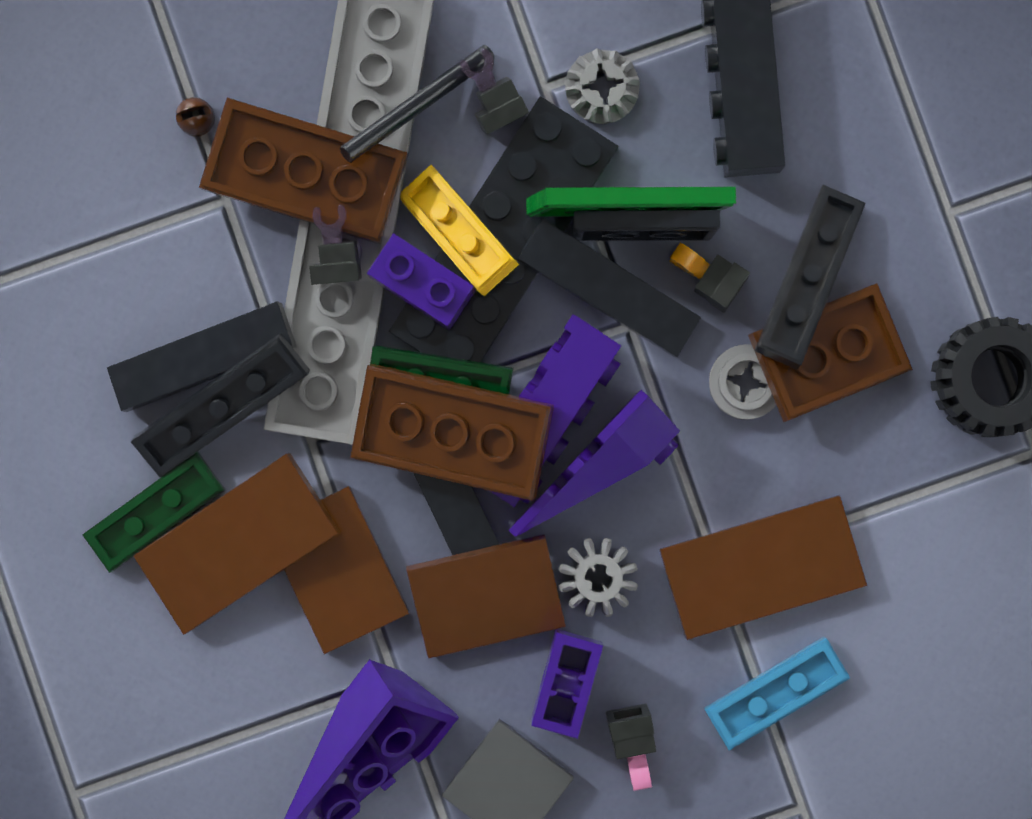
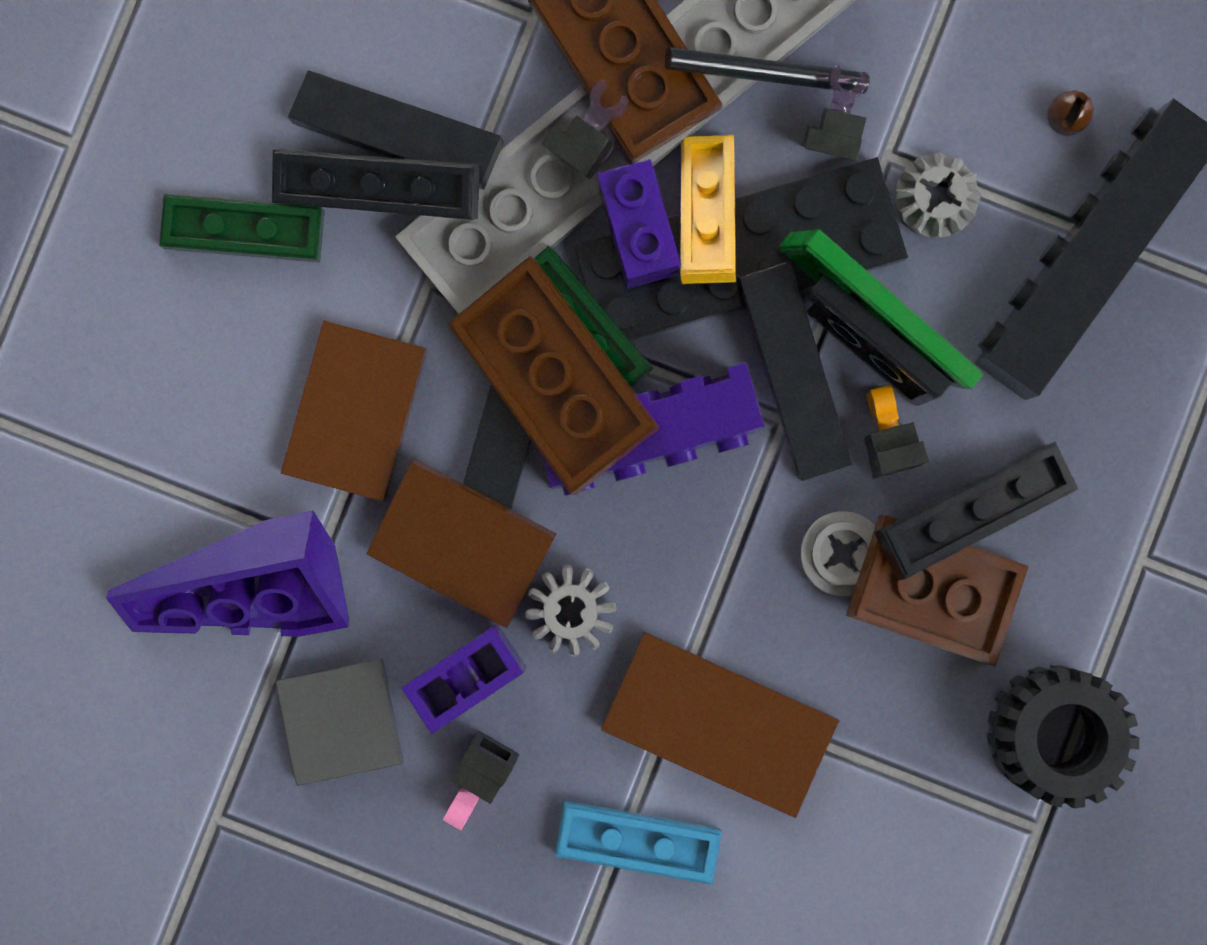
camera: 30 degrees right, 0 degrees up
(237, 543) = (288, 314): reddish brown tile -> none
(622, 448) = (687, 517): dark purple wedge -> none

